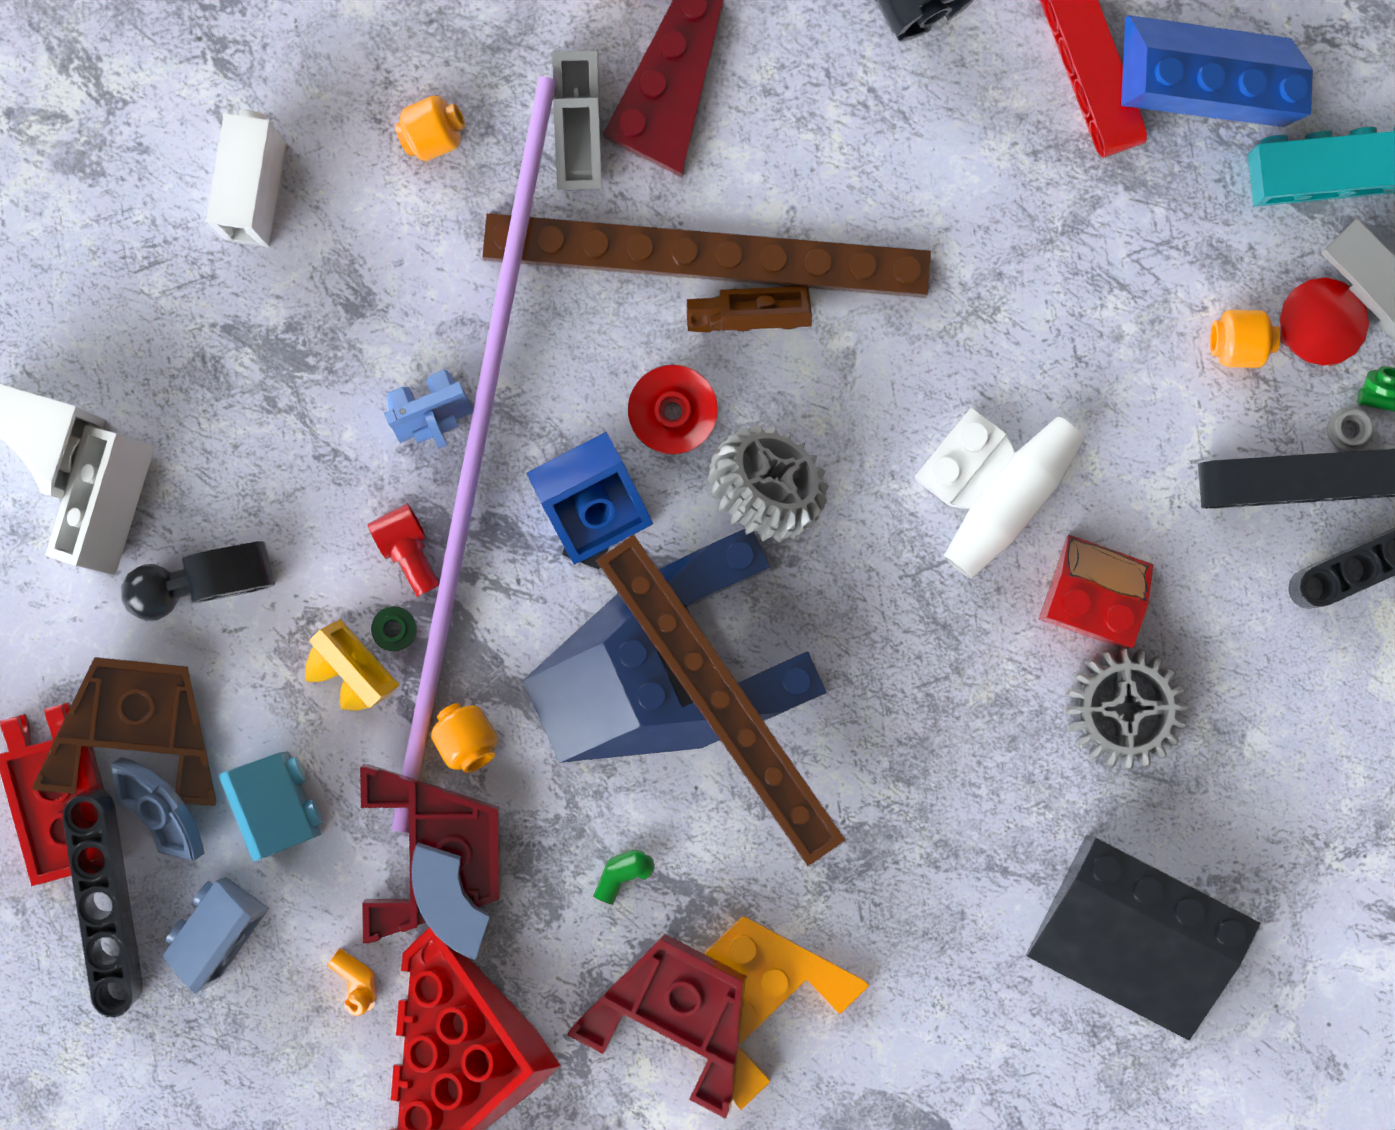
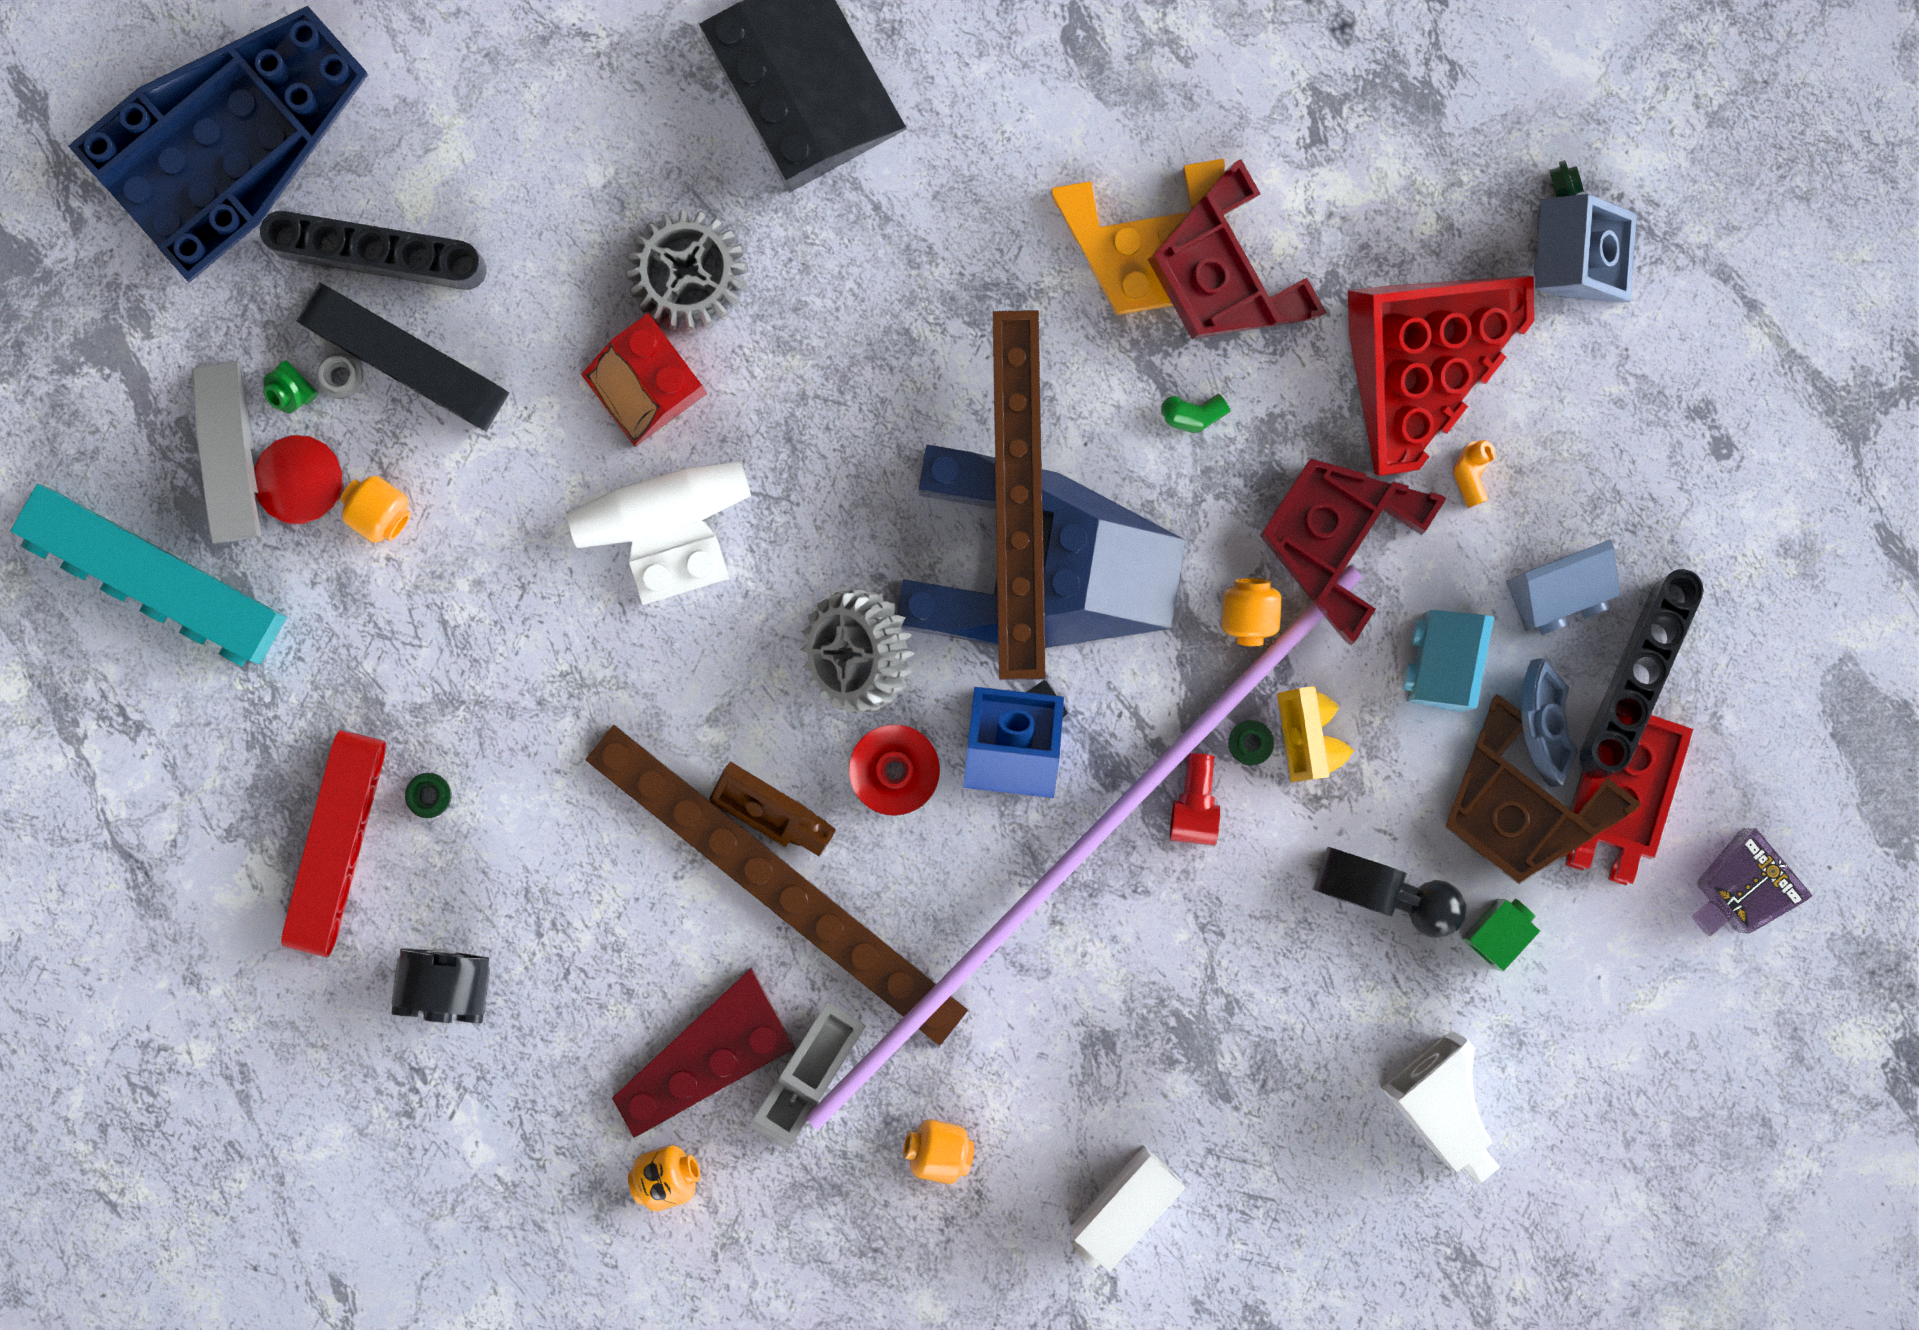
camera: 150 degrees left, 0 degrees up
(83, 609) = (1502, 933): none -> green brick
(100, 500) = (1429, 1014): white brick -> none
(430, 414) = (1101, 901): medium blue hips -> none
(444, 901) = (1356, 484): sand blue tile -> none
(1042, 126) = (414, 791): none -> dark green plate
(1214, 72) = (241, 749): blue slope -> none

